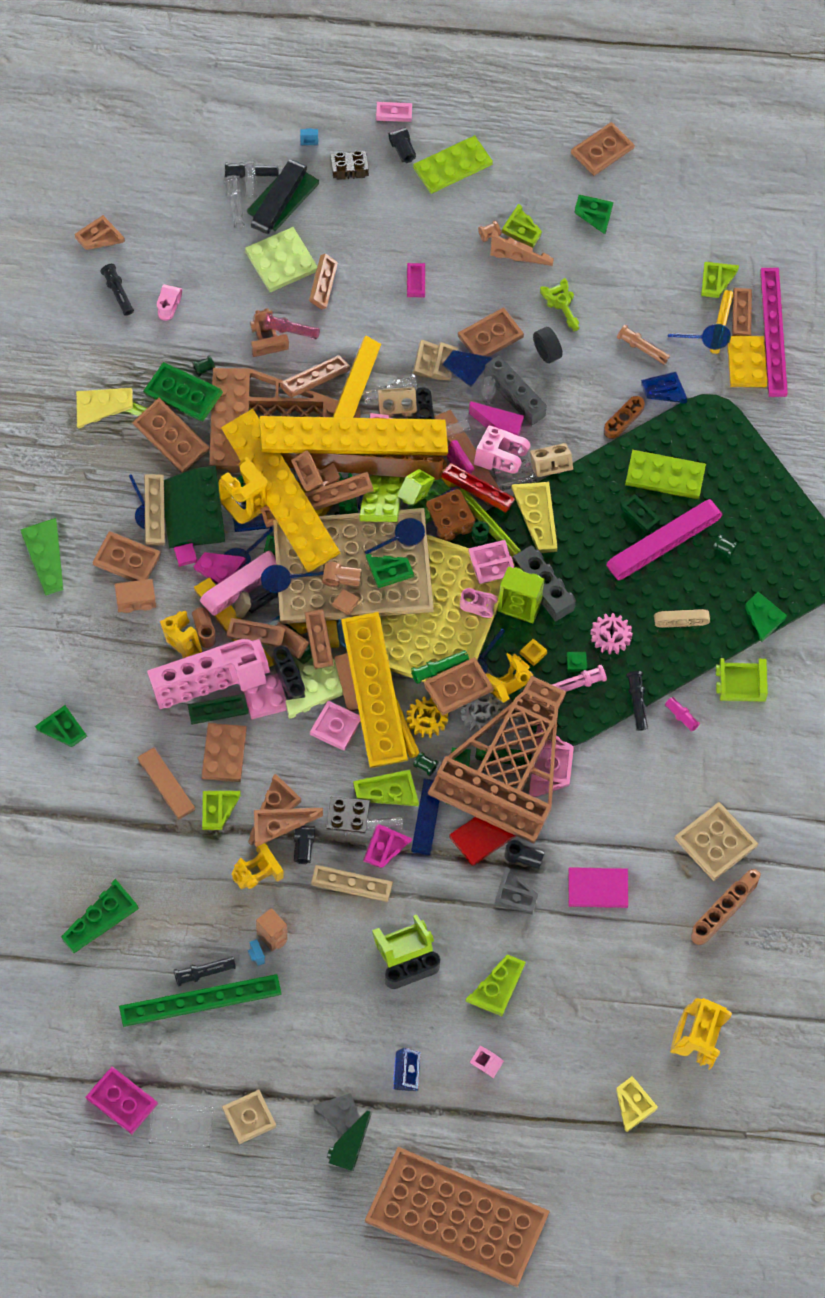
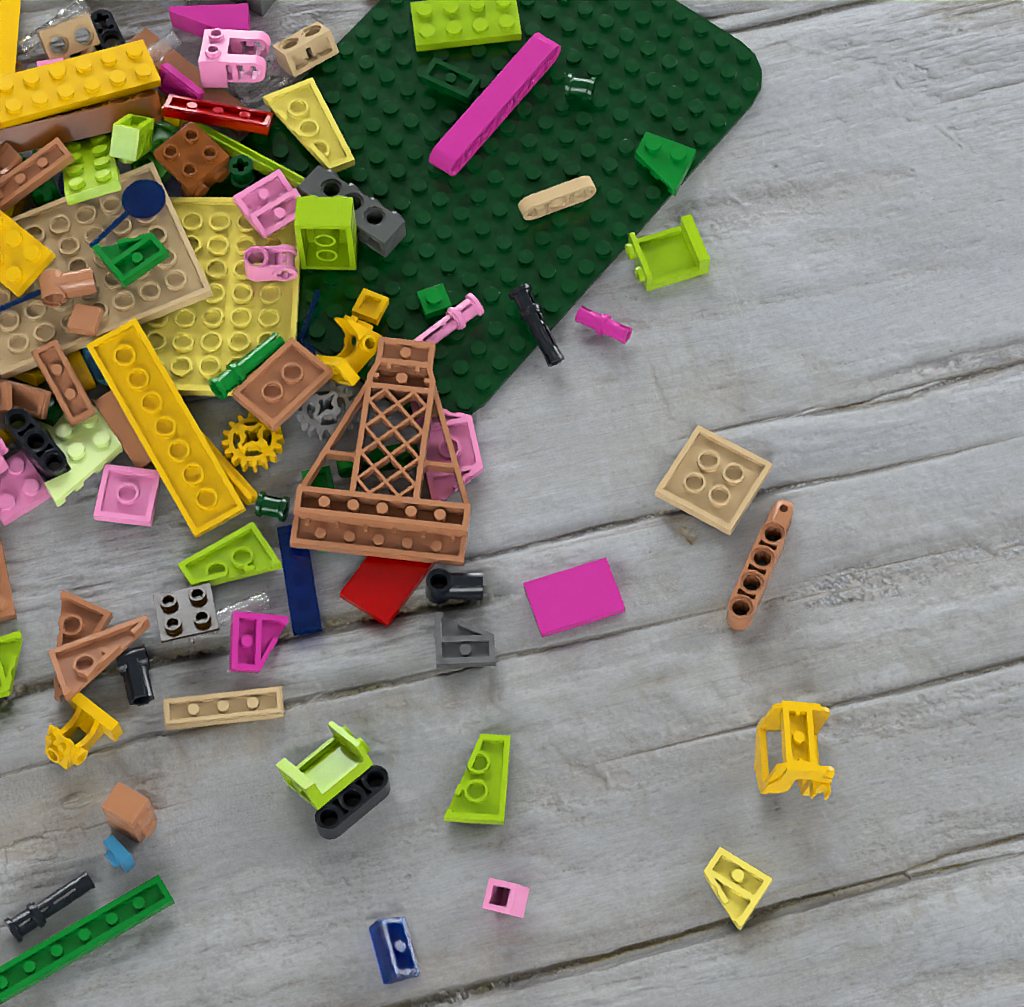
camera: 15 degrees left, 0 degrees up
(602, 636) = (457, 255): bright pink gear -> none

